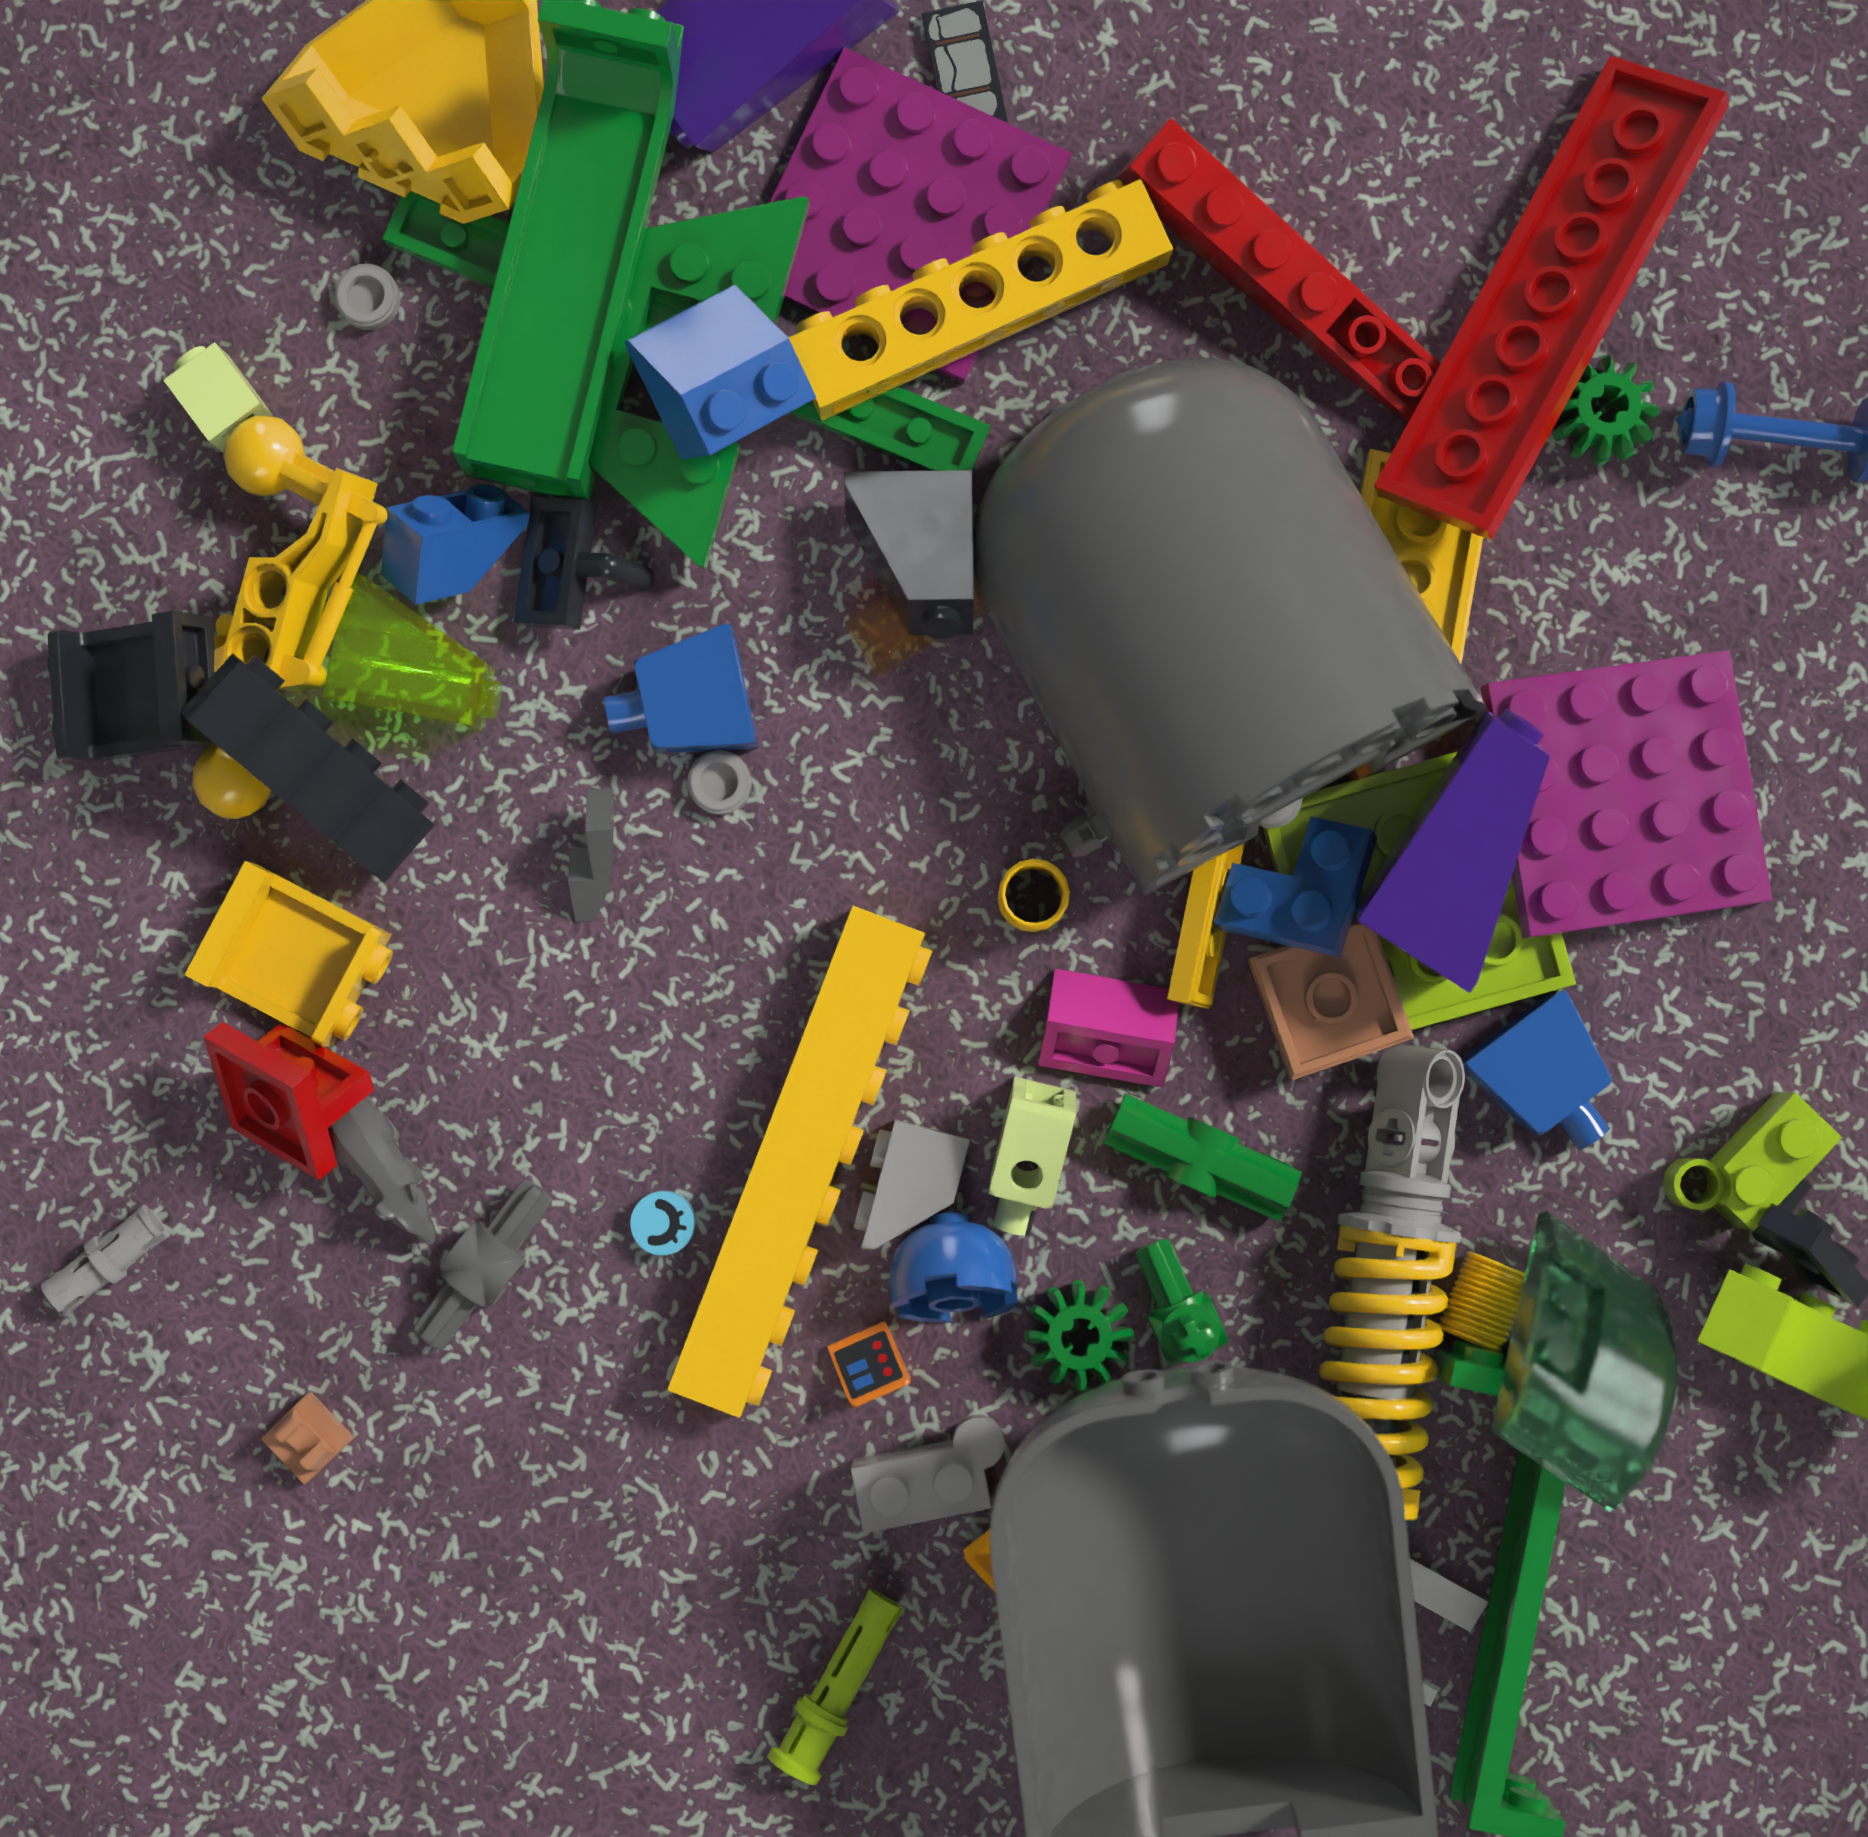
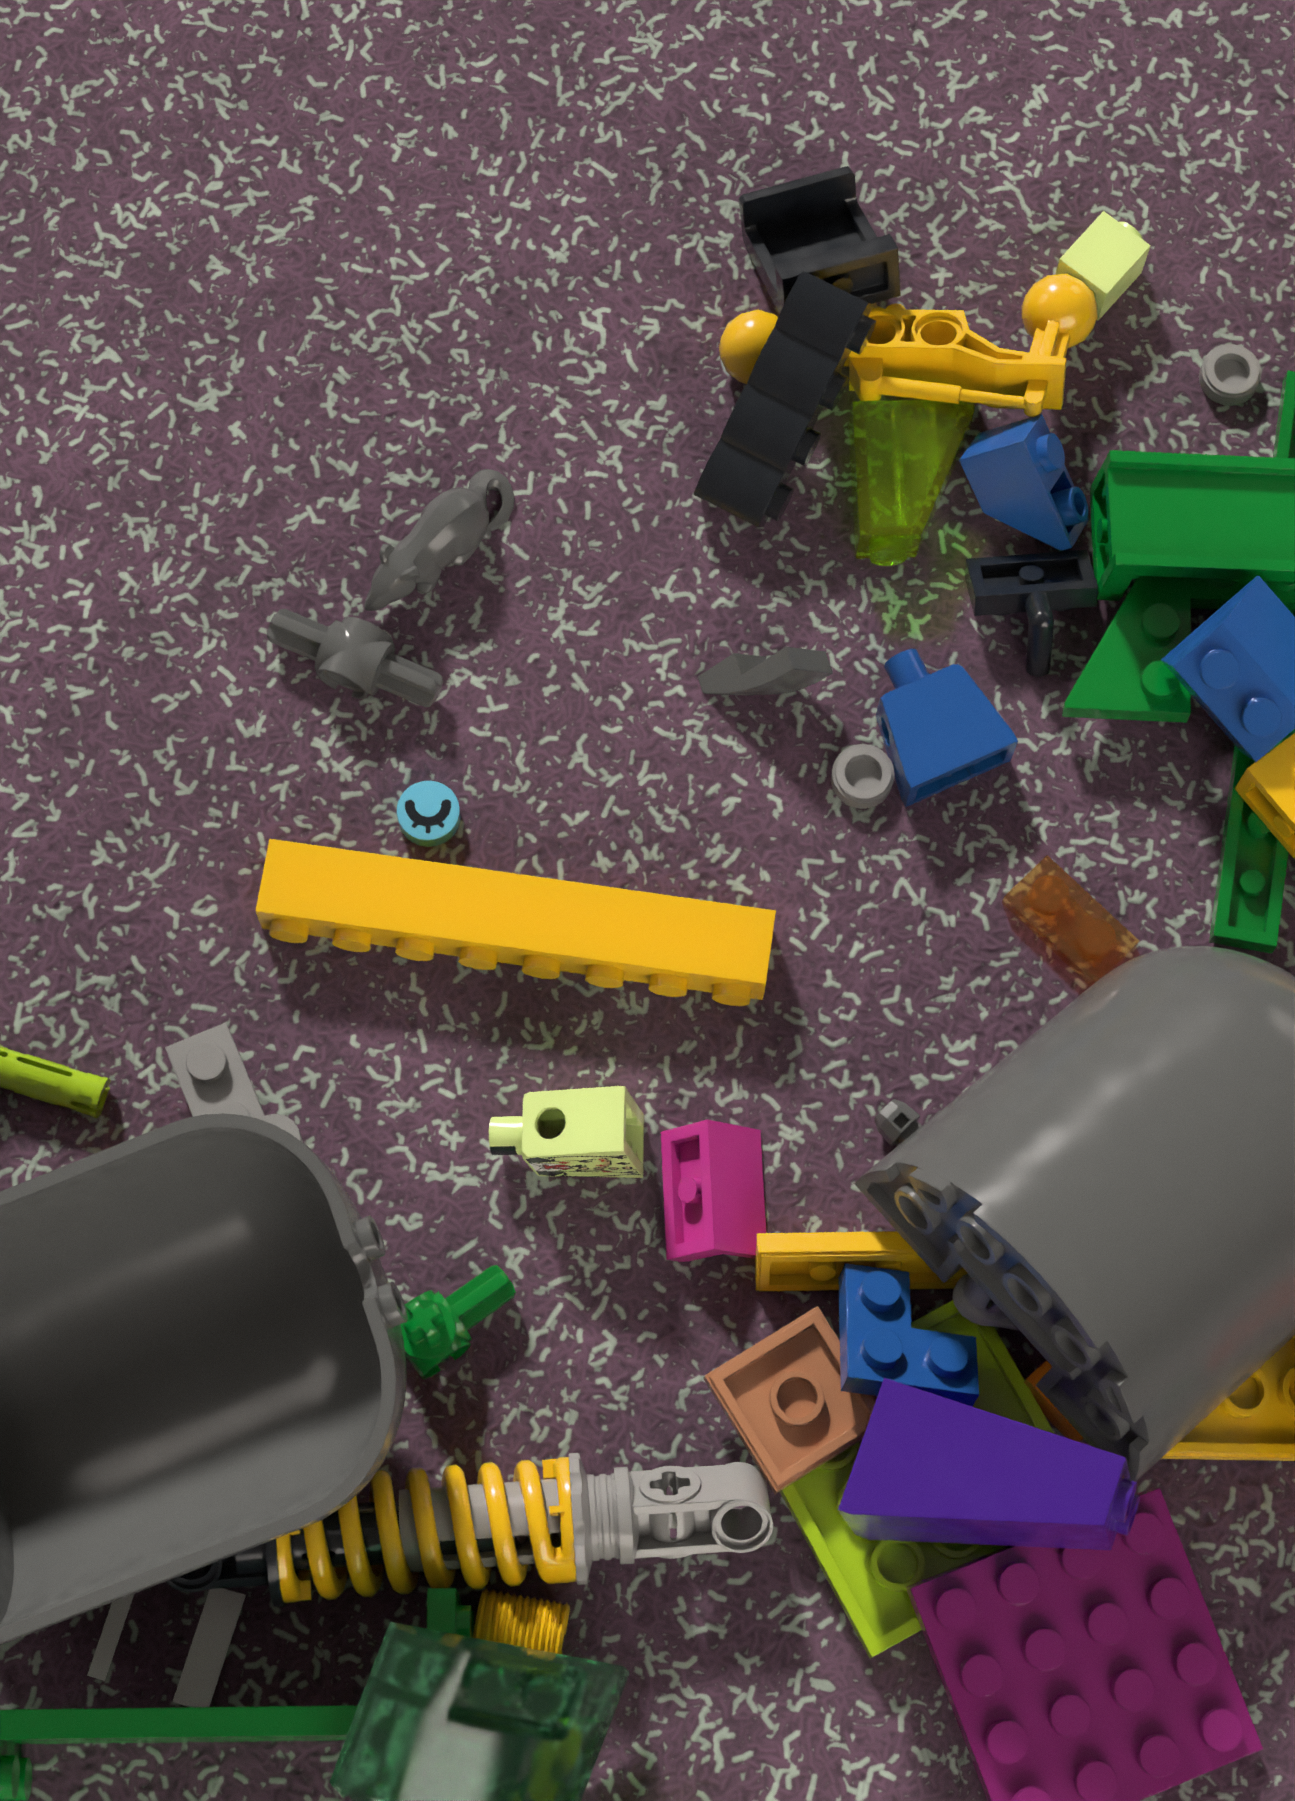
camera: 70 degrees right, 15 degrees down
(104, 1260) = (290, 337): light grey pin -> none
(285, 1092) = (481, 445): red bracket -> none
(291, 955) = (607, 431): yellow panel -> none
(307, 1438) = (160, 542): nougat tile -> none
(869, 1364) = (330, 1033): slope -> none
(915, 1182) = (520, 1033): light grey slope -> none
(918, 543) = (1143, 902): slope -> none
(952, 1269) = (440, 1084): blue cylinder -> none
(1049, 869) = (835, 1055): yellow piece -> none
(1094, 1348) = (418, 1207): green gear -> none
(1202, 1157) = (605, 1310): green piece -> none
(1544, 1070) = (773, 1643): blue torso -> none

